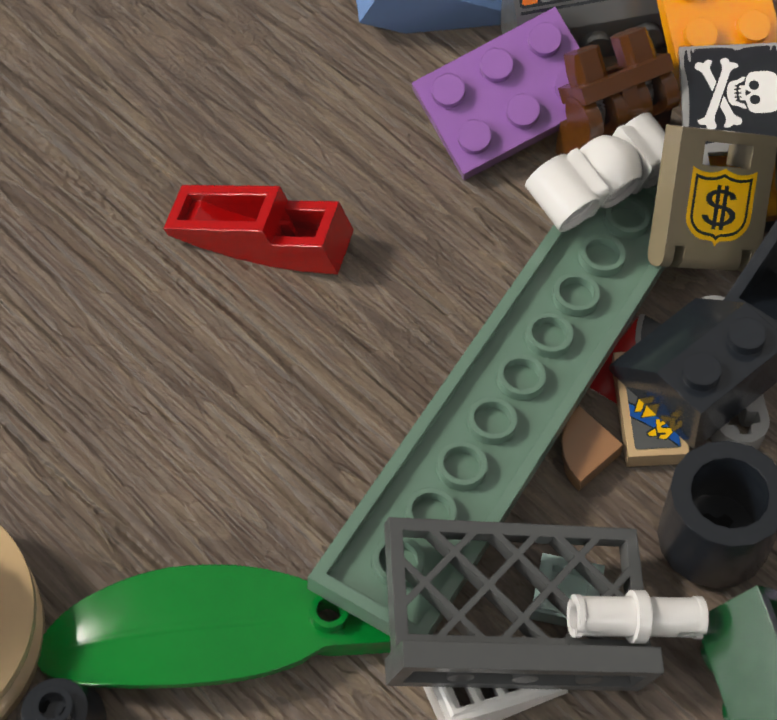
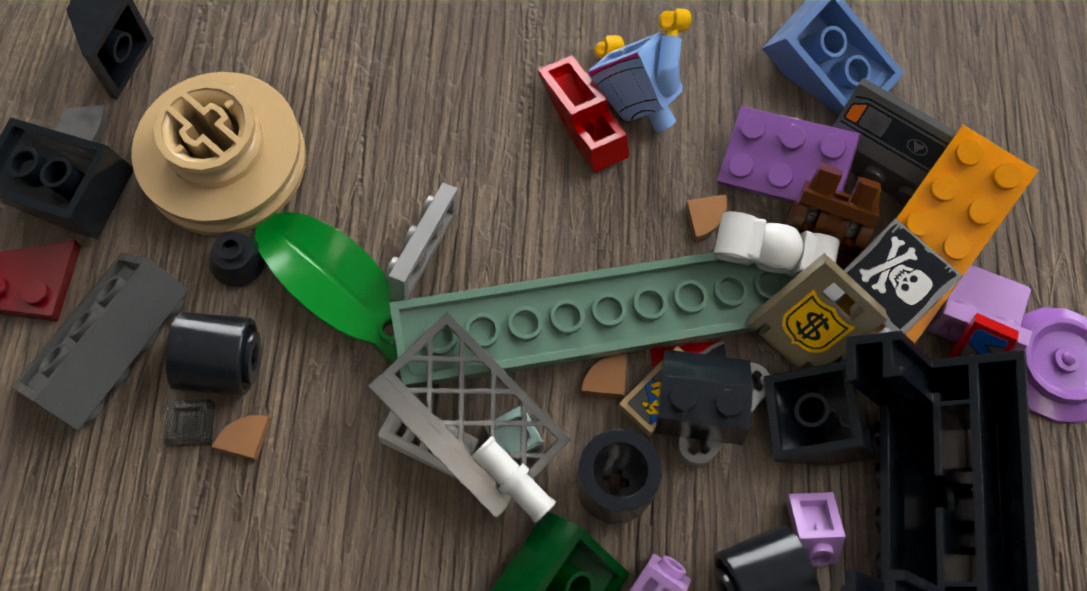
camera: 45 degrees right, 10 degrees up
(258, 497) = (421, 242): none -> light grey plate
(289, 132) = (644, 74): none -> light blue torso
(490, 216) = (705, 215): none -> medium nougat tile

